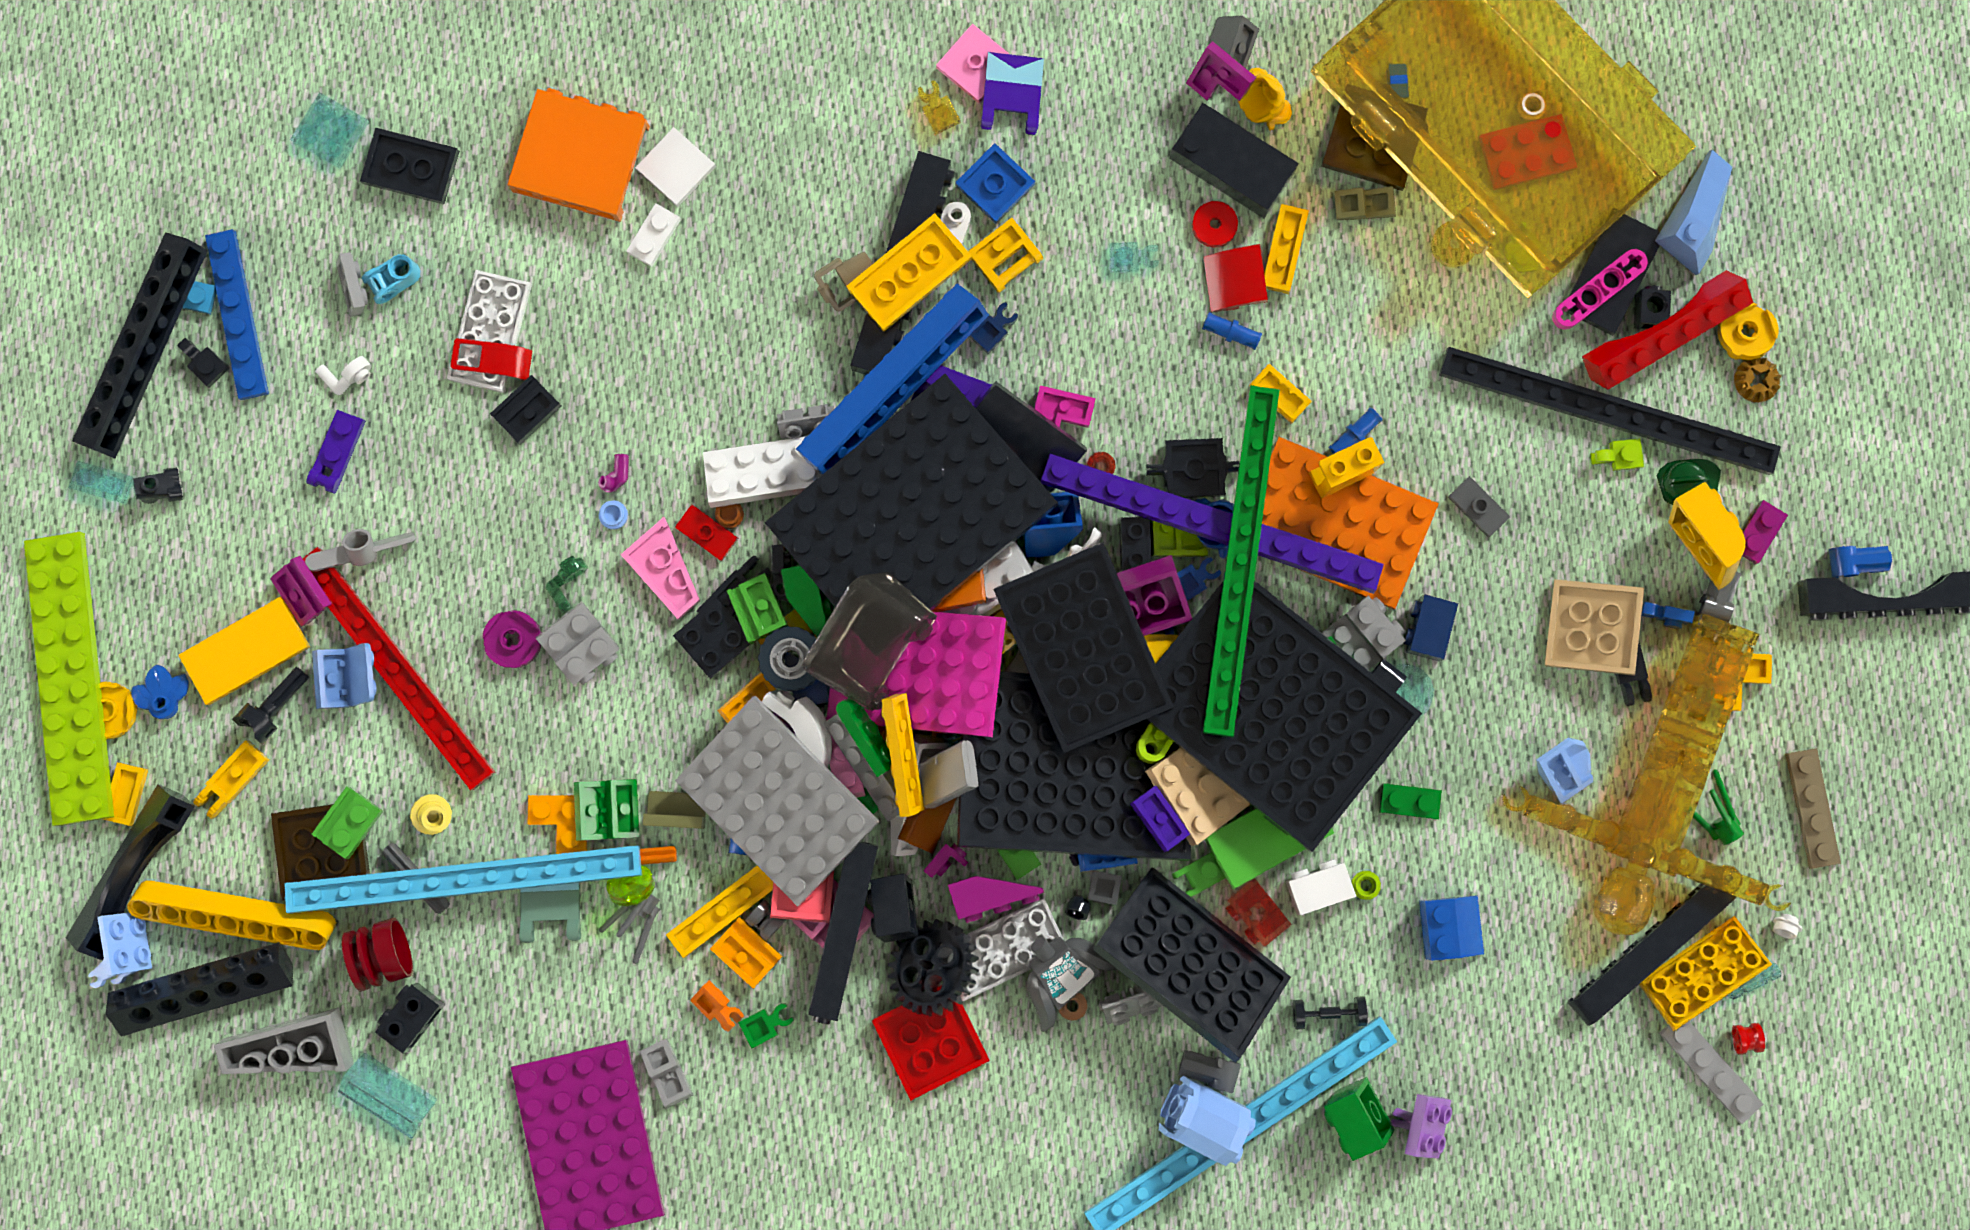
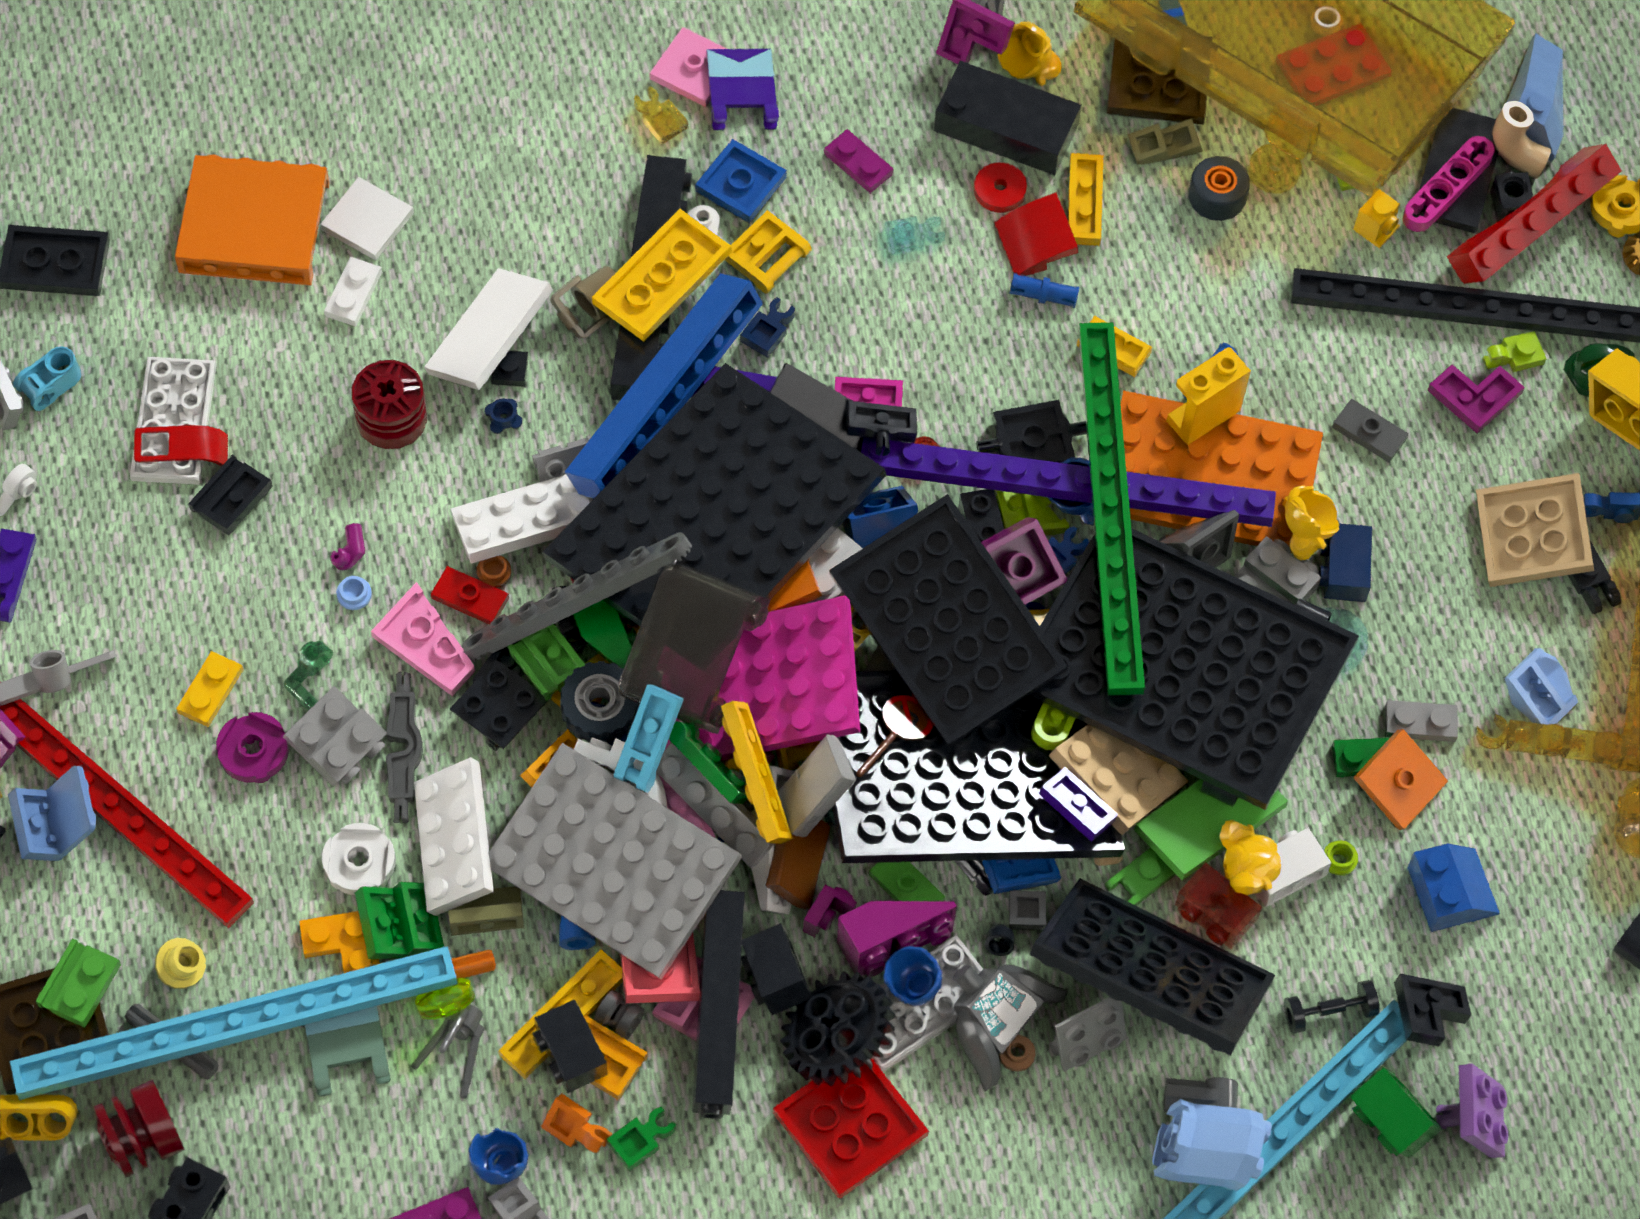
camera: 15 degrees left, 20 degrees down
(486, 580) = (209, 689): none -> yellow plate
(592, 764) = (345, 845): none -> white plate
(629, 673) = (402, 764): none -> dark grey piece
(658, 749) = (453, 836): none -> white plate
(658, 1029) = (487, 1148): none -> blue hair
(663, 368) = (389, 404): none -> dark red wheel
(719, 947) = (570, 1047): none -> black brick
(759, 293) = (488, 329): none -> white tile
(759, 365) = (500, 407): none -> dark blue plate
(772, 328) = (511, 370): none -> black plate
(785, 573) = (581, 594): none -> dark grey plate
(820, 712) = (648, 737): none -> medium azure plate
(1000, 937) = (913, 975): none -> blue hair
(1031, 724) = (904, 720): none -> reddish brown piece
(1066, 448) = (881, 423): none -> black plate
(1099, 178) = (858, 161): none -> magenta plate
(1289, 885) = (1249, 858): none -> yellow hair
(1309, 595) = (1207, 539): none -> dark grey slope
(1396, 267) = (1219, 188): none -> black wheel
(1402, 1026) = (1425, 1004): none -> black plate
(1407, 591) = (1310, 519): none -> yellow hair
(1430, 829) = (1400, 779): none -> orange plate
(1460, 776) = (1422, 720): none -> light grey plate
(1531, 311) = (1378, 219): none -> yellow brick
(1575, 498) = (1475, 403): none -> magenta plate
(1667, 261) = (1514, 144): none -> tan cylinder

